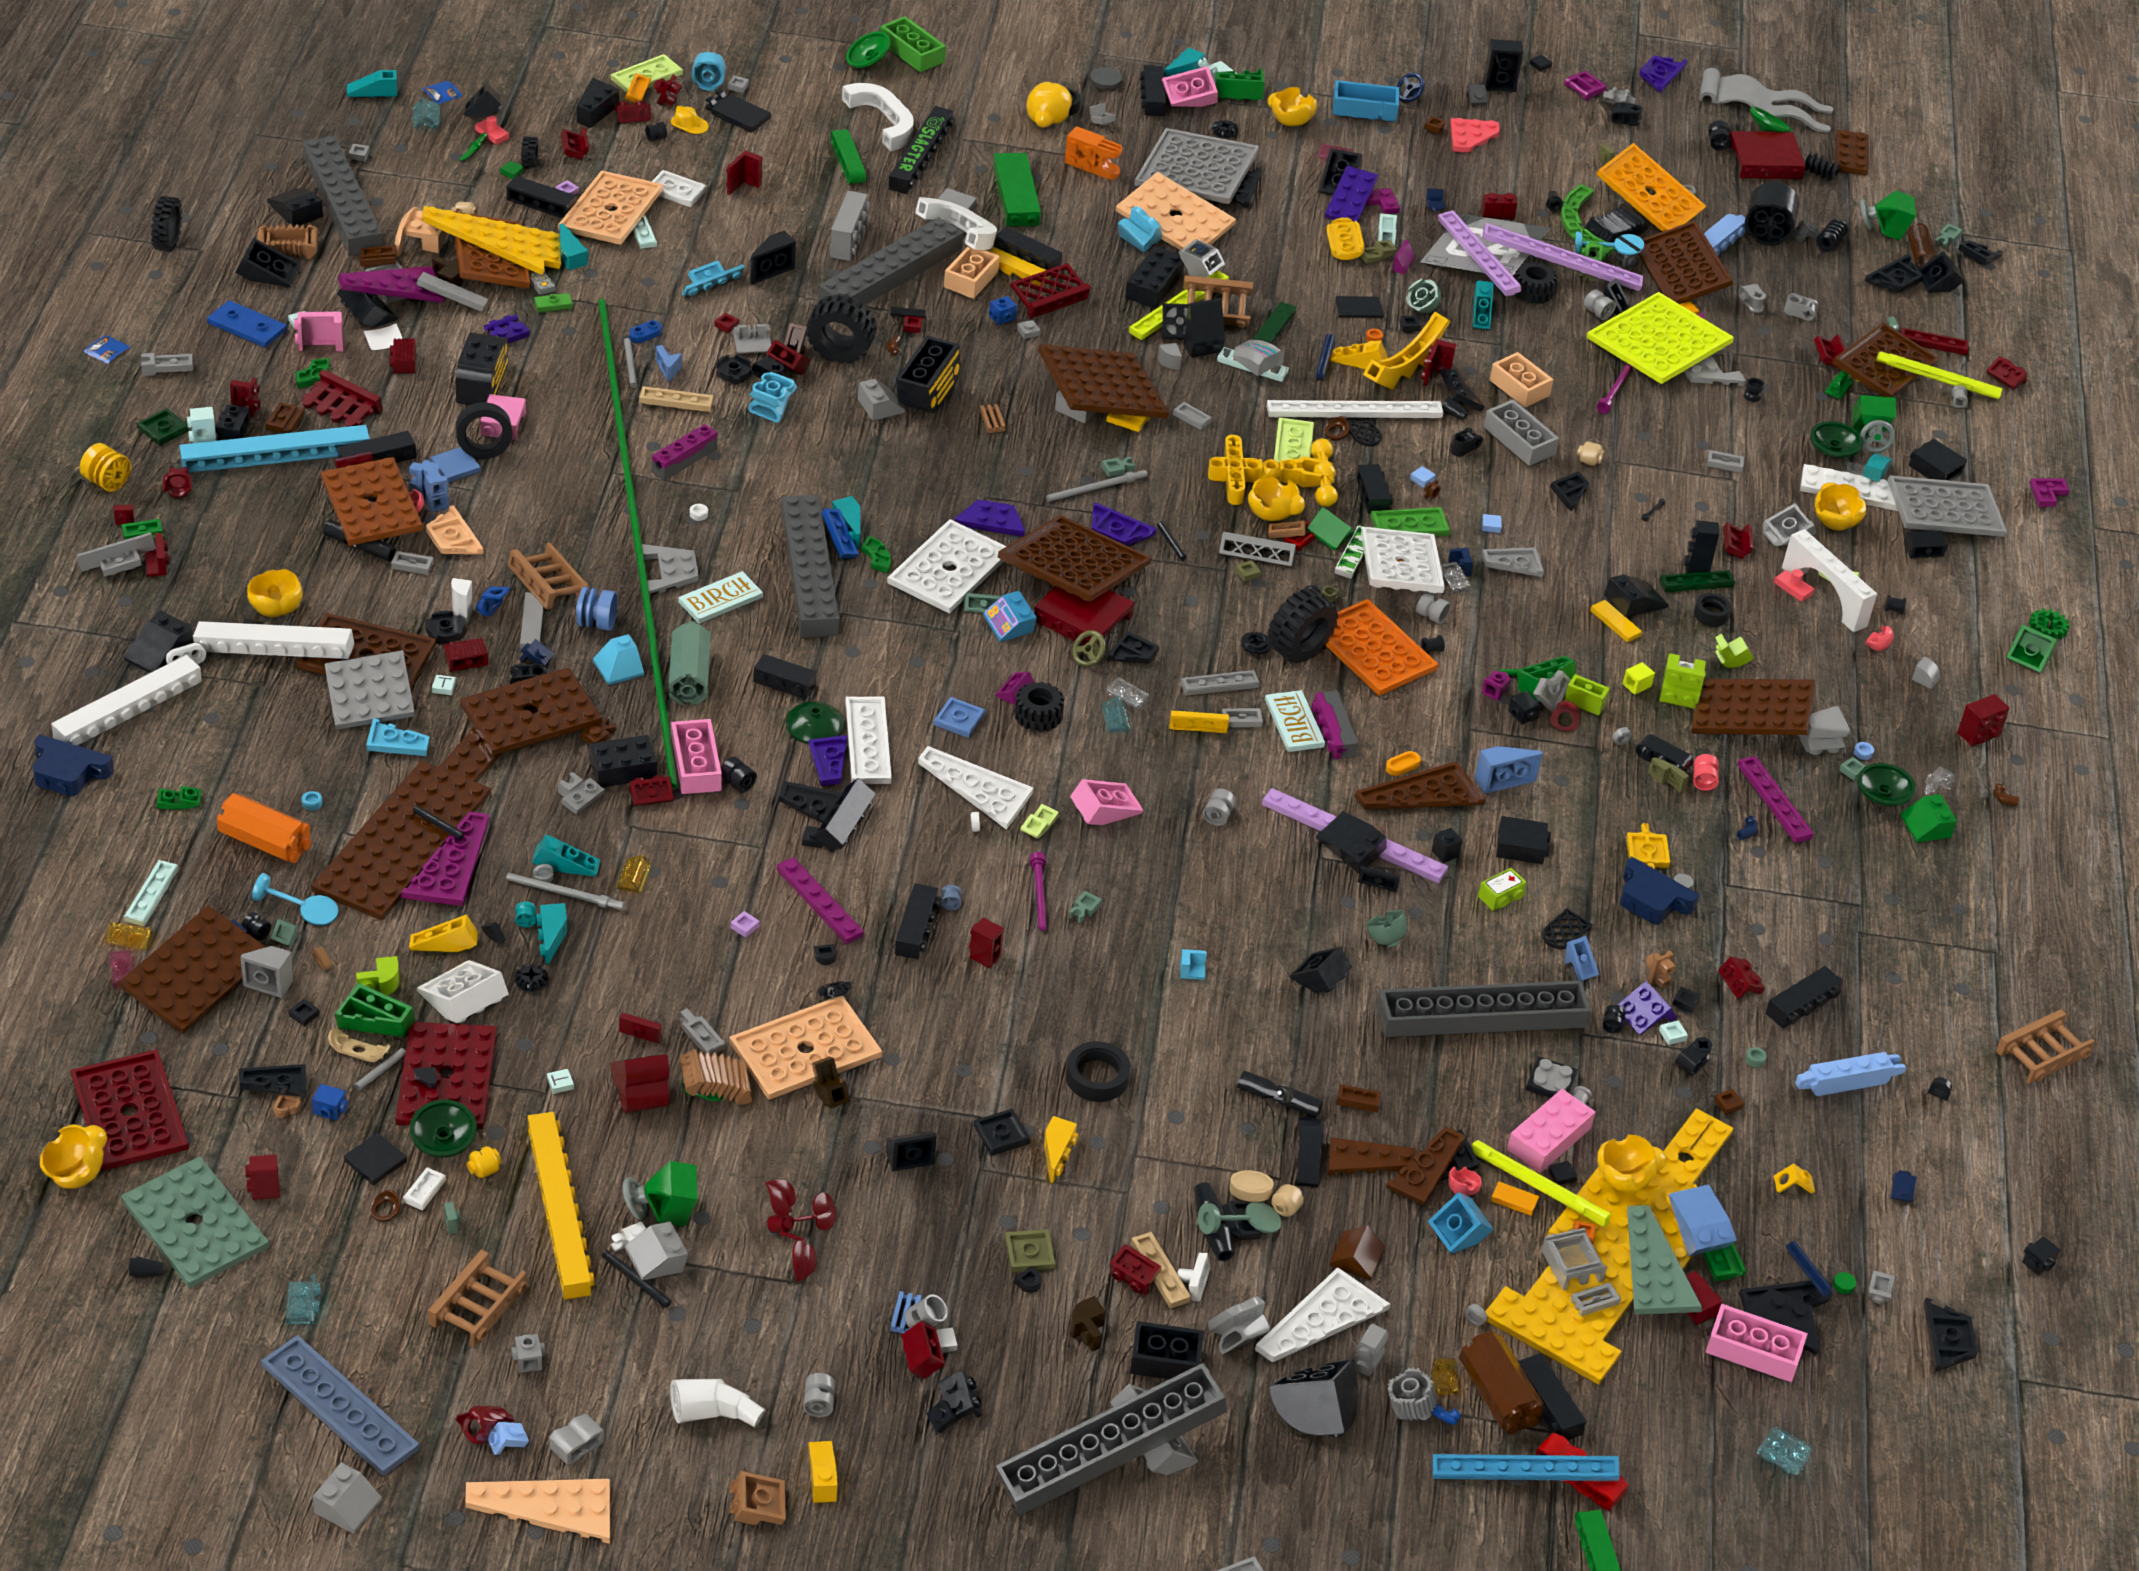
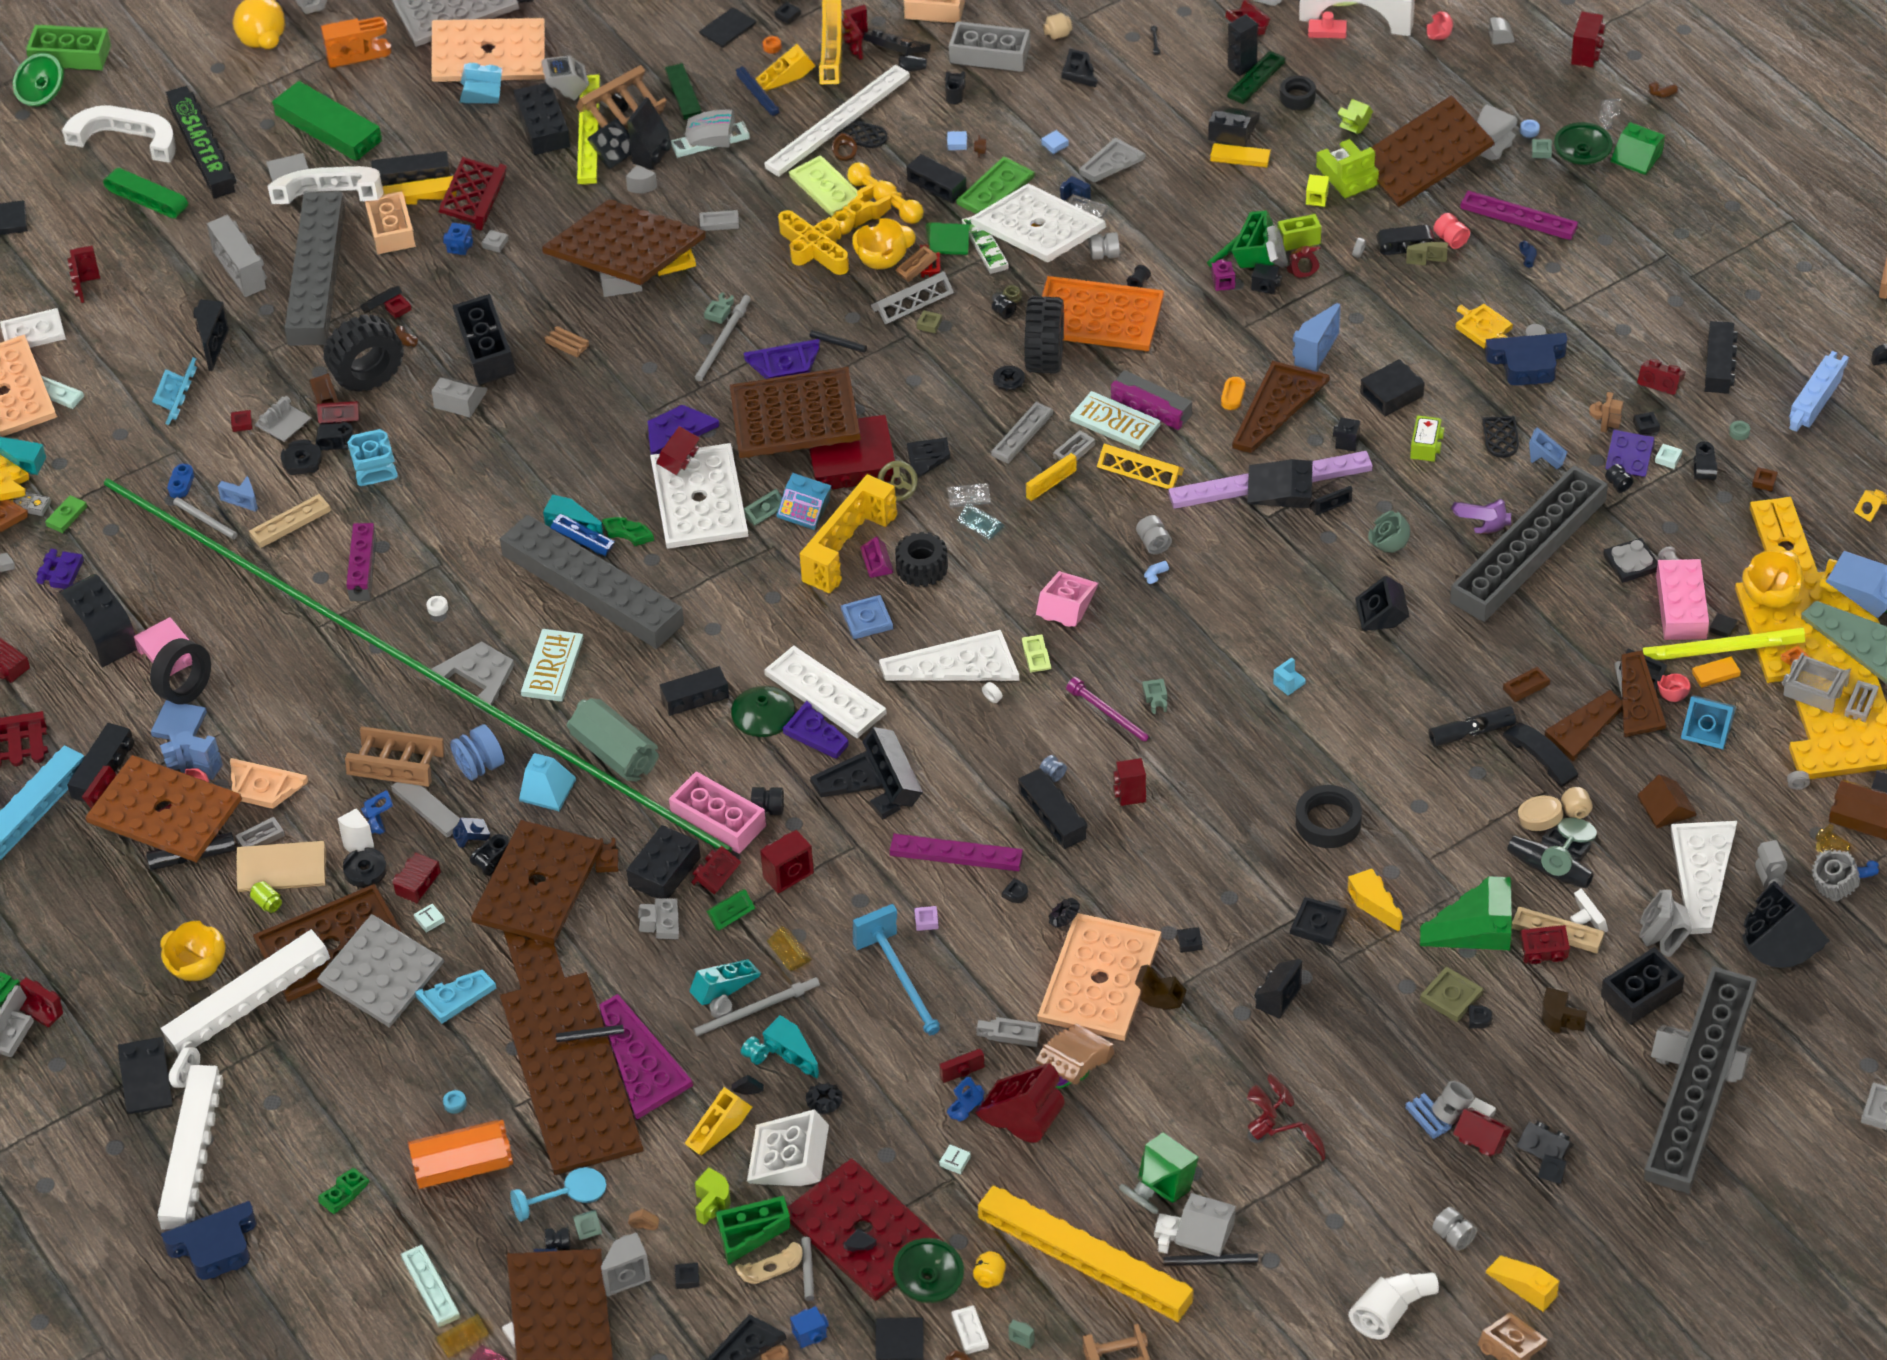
camera: 35 degrees left, 5 degrees up
(365, 598) = (265, 896): none -> lime brick
(399, 588) = (282, 865): none -> tan slope
(621, 1052) = (966, 1101): none -> blue bracket
(627, 820) = (730, 909): none -> green plate
(692, 899) = (877, 928): none -> dark azure tile
(696, 817) = (787, 861): none -> dark red brick
(898, 1073) = (1189, 939): none -> black plate
(964, 525) = (678, 451): none -> dark red brick
(1009, 647) = (819, 558): none -> yellow plate
(1113, 1219) = (1475, 921): none -> green slope
(1195, 831) = (1155, 569): none -> light blue arm
(1276, 757) = (1146, 461): none -> yellow fence
(1478, 970) = (1493, 514): none -> medium lavender piece

